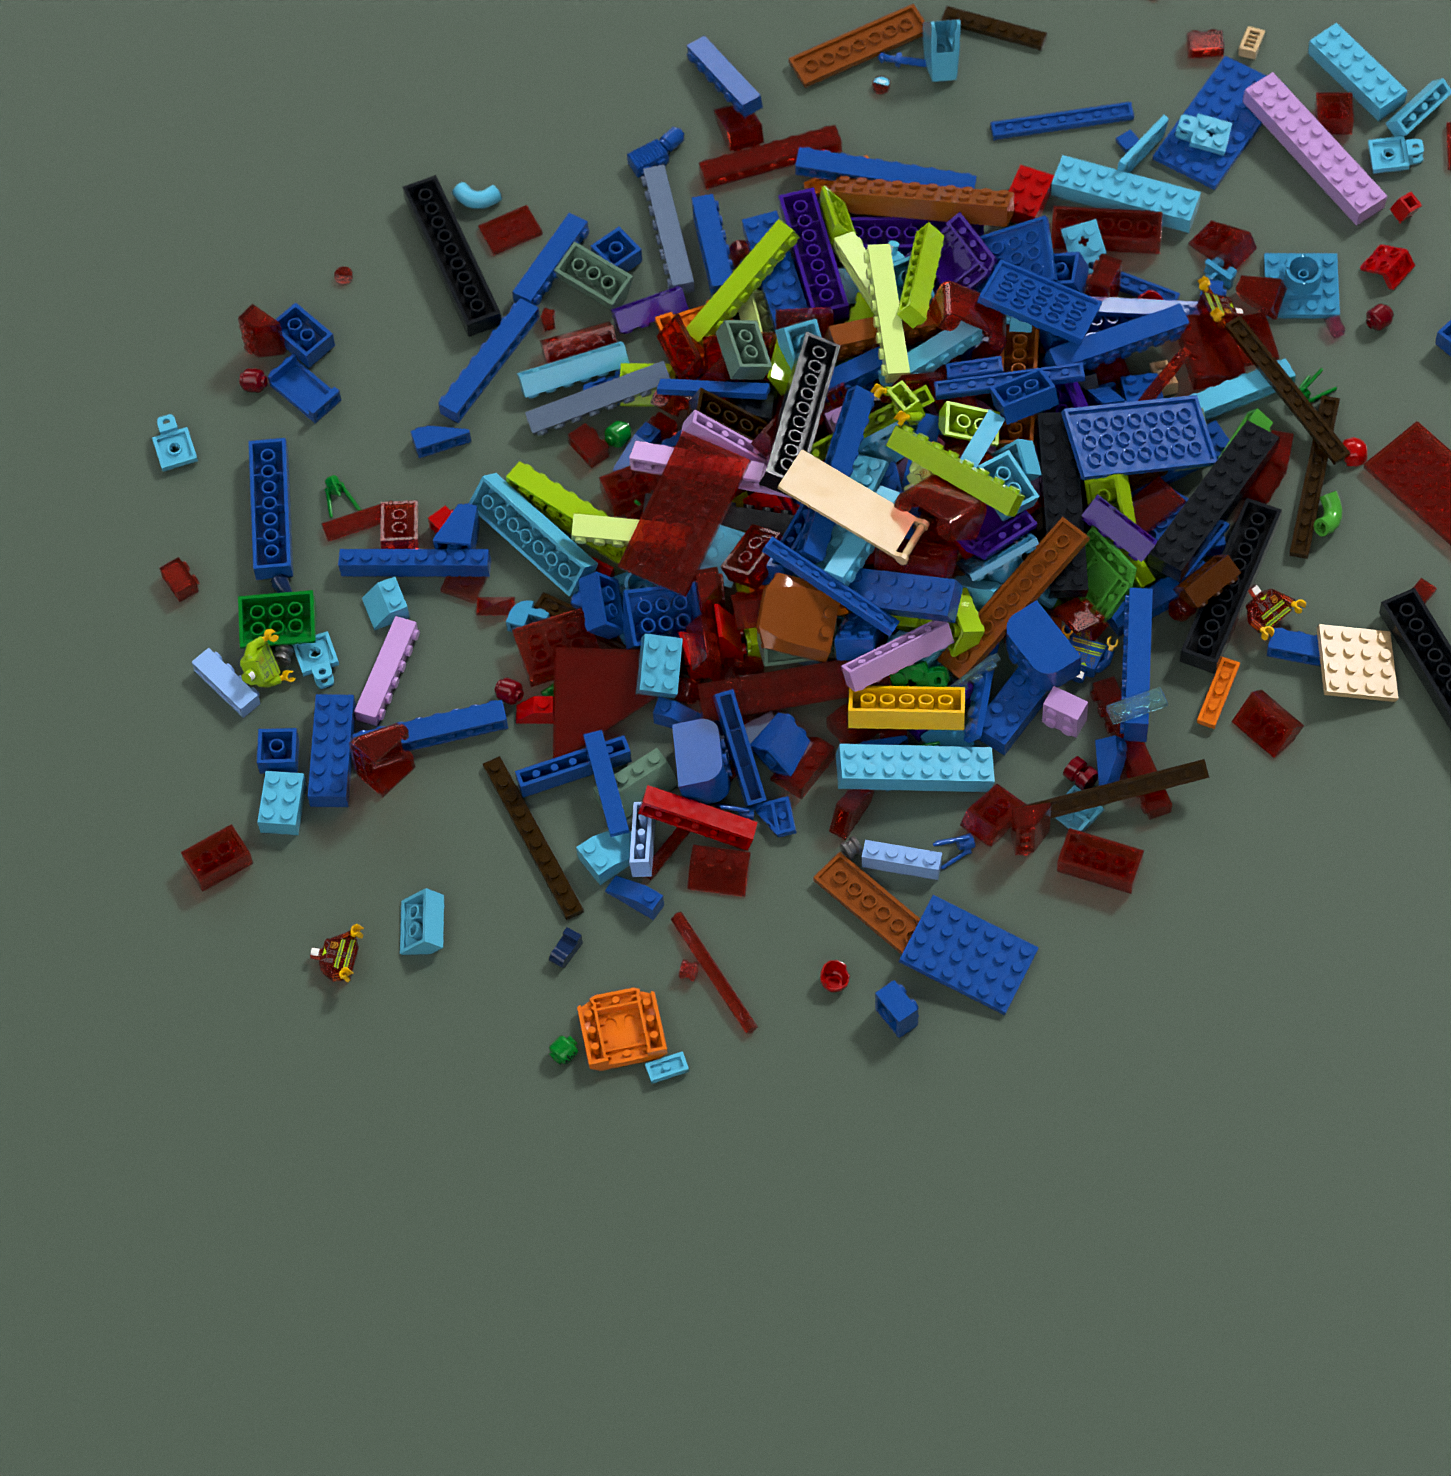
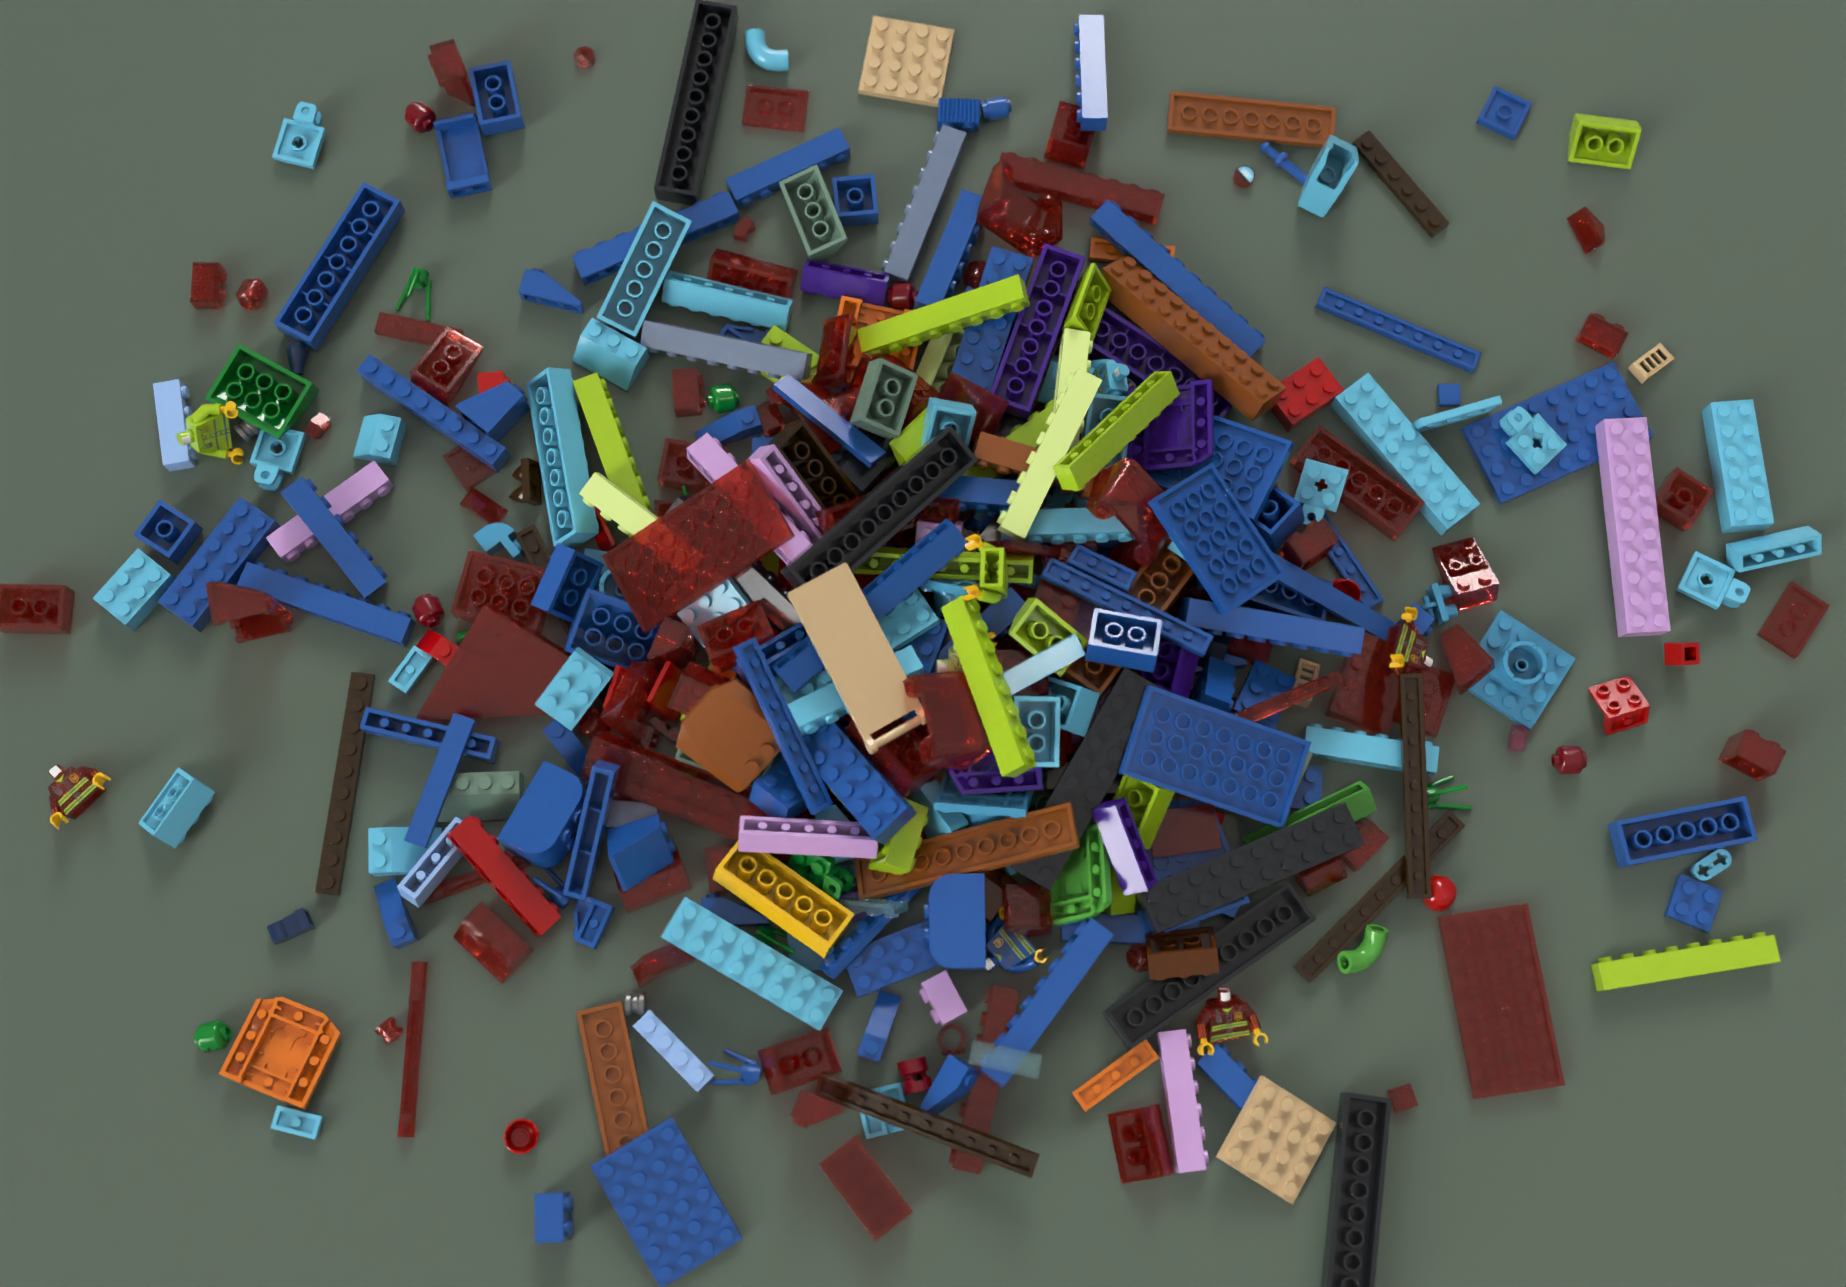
camera: 25 degrees right, 15 degrees up
(217, 565) = (252, 294): none -> clear red head
(333, 621) = (318, 426): none -> clear red piece
(406, 679) = (333, 536): none -> blue brick
(500, 380) = (643, 269): none -> medium azure brick
(509, 448) = (610, 354): none -> medium azure slope
(522, 573) = (529, 475): none -> dark brown tile
(525, 737) = (410, 670): none -> medium azure plate
(582, 146) = (906, 61): none -> tan plate
(697, 295) = (902, 296): none -> dark red head
(742, 198) = (1017, 216): none -> clear red windscreen
(1033, 762) = (879, 1026): none -> blue slope
(1090, 749) = (947, 1051): none -> clear red piece
(1275, 680) = (1181, 1101): none -> lavender brick

